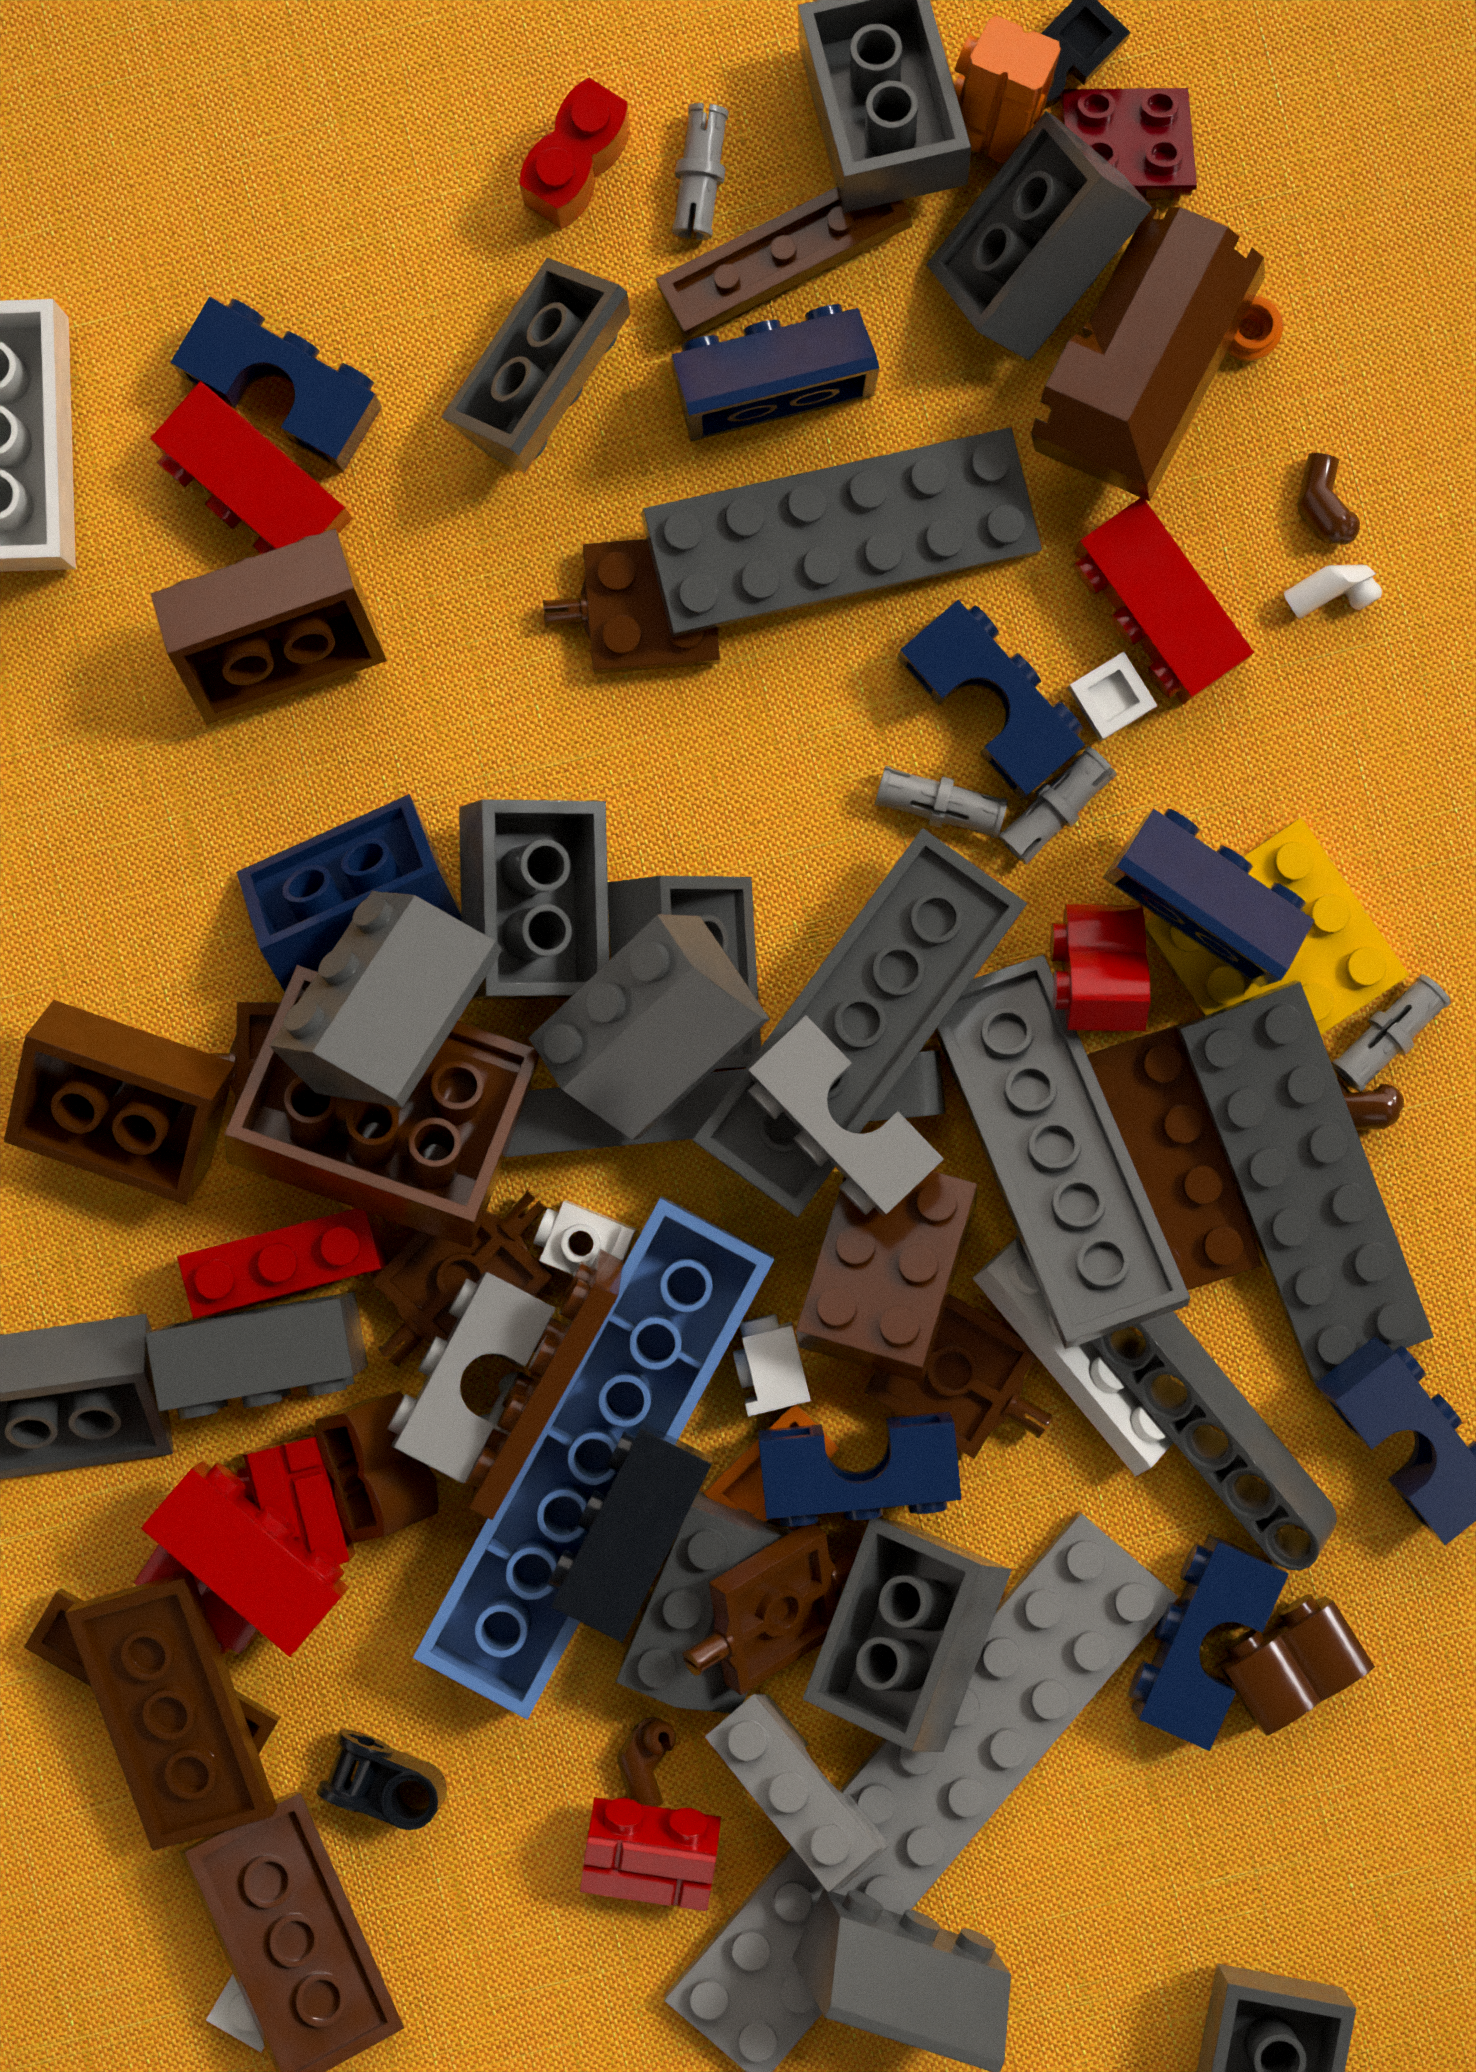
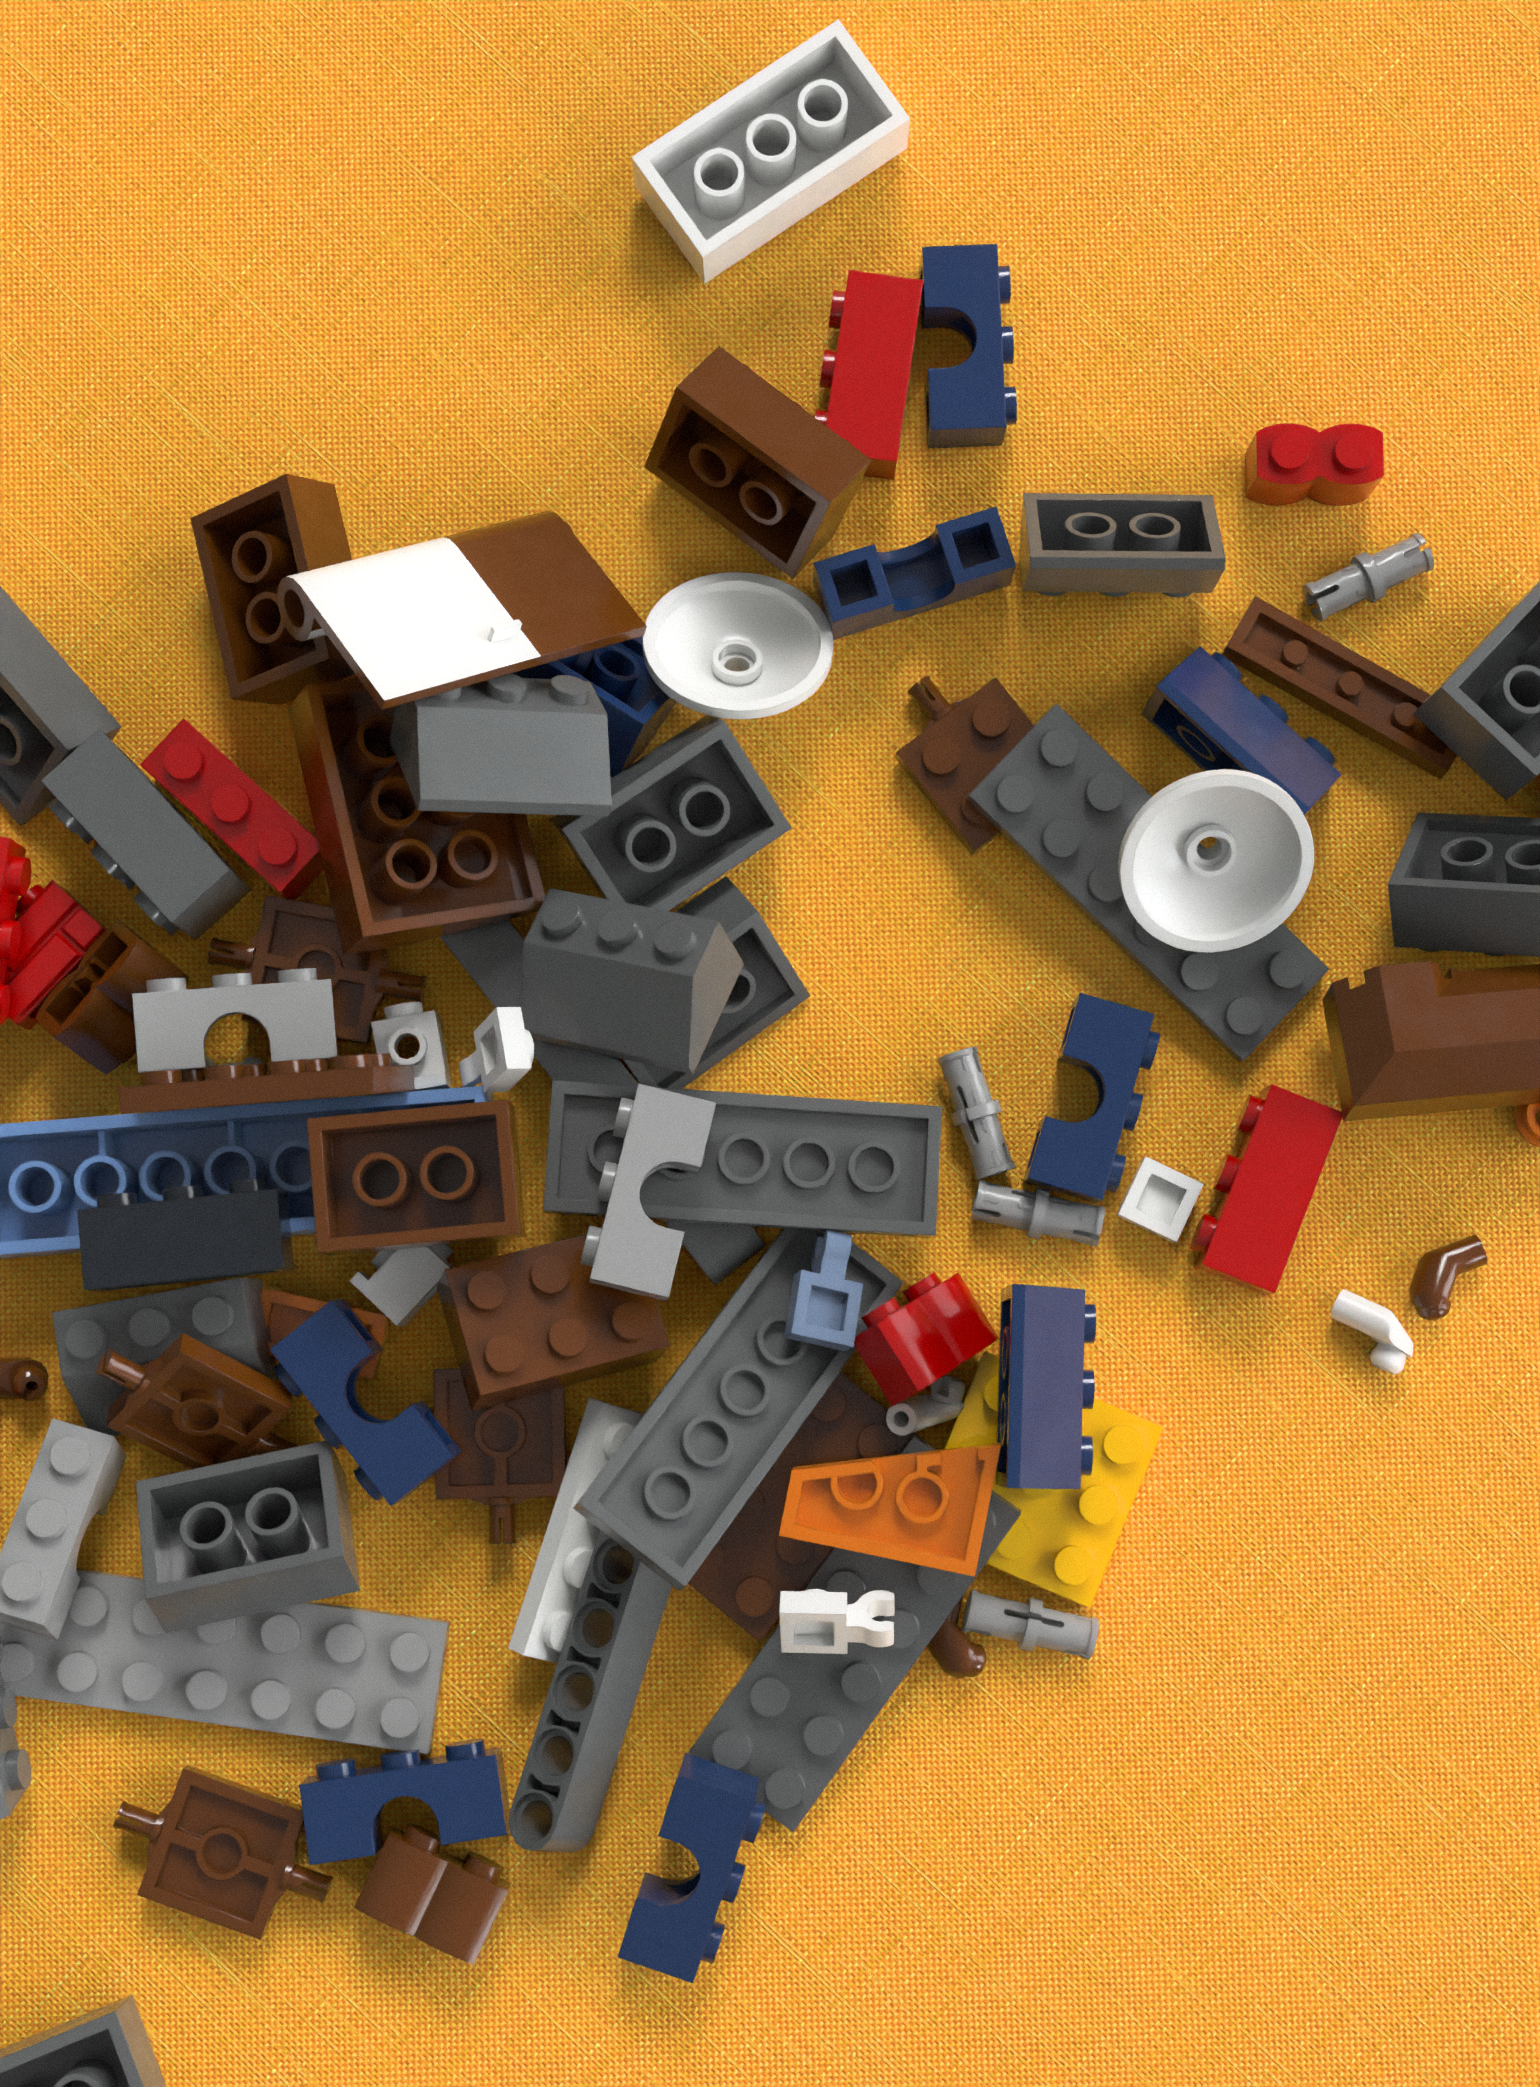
camera: 55 degrees right, 5 degrees down
(241, 960) = (460, 608): none -> door
(400, 728) = (737, 645): none -> white dish
(453, 556) = (949, 566): none -> dark blue arch
(641, 1167) = (501, 1053): none -> white plate
(706, 1306) = (416, 1177): none -> reddish brown brick
(894, 469) = (1220, 893): none -> white dish
(1023, 1032) = (822, 1302): none -> sand blue plate
(1149, 1816) = (223, 1852): none -> reddish brown plate
(1164, 1001) = (928, 1409): none -> white arm
(1232, 1079) = (897, 1507): none -> orange wing
(1288, 1199) = (826, 1622): none -> white plate

